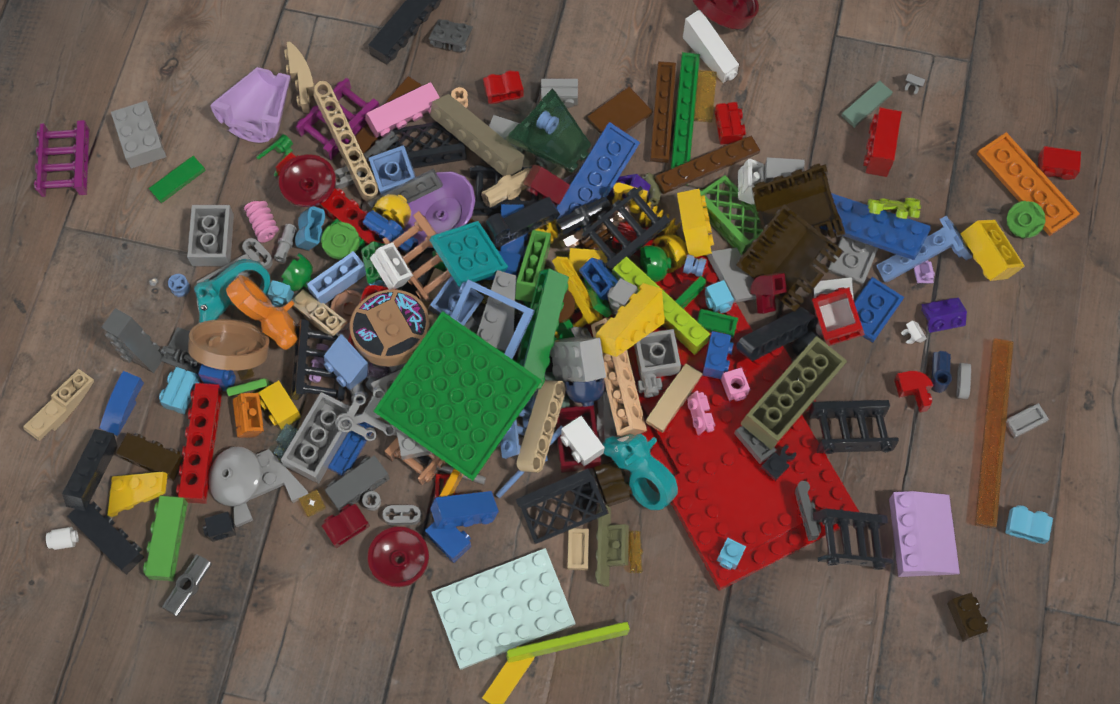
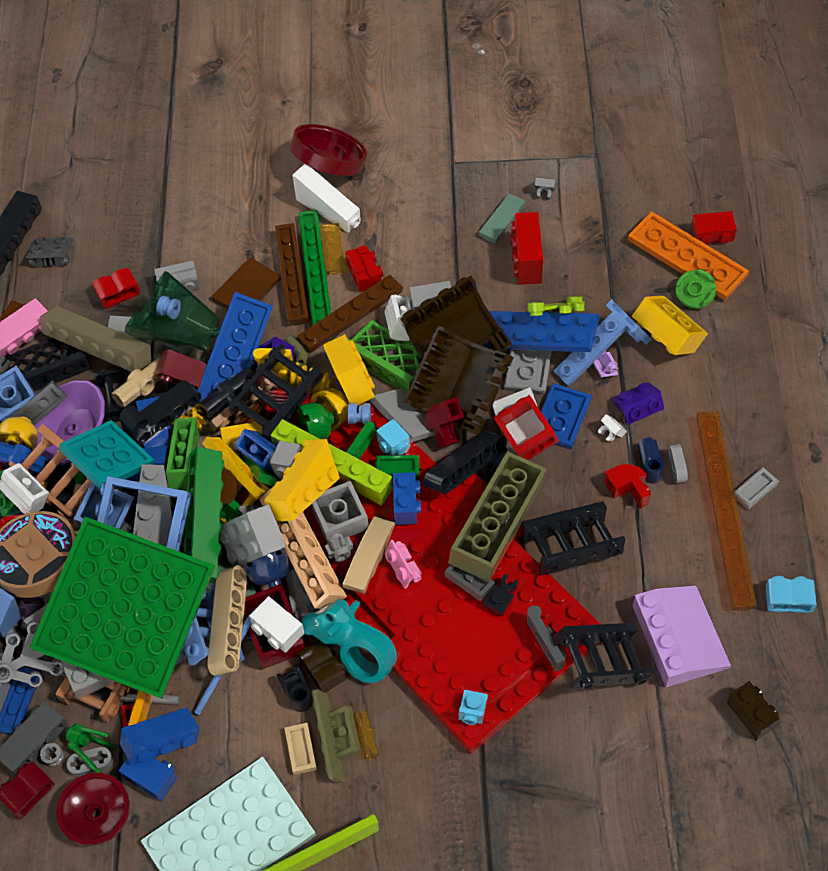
camera: 10 degrees left, 10 degrees down
(399, 492) = (81, 736): none -> green plant
(460, 95) = (72, 305): light nougat bush -> none
(556, 489) = (259, 686): black fence -> none
(735, 376) = (430, 516): bright pink brick -> none

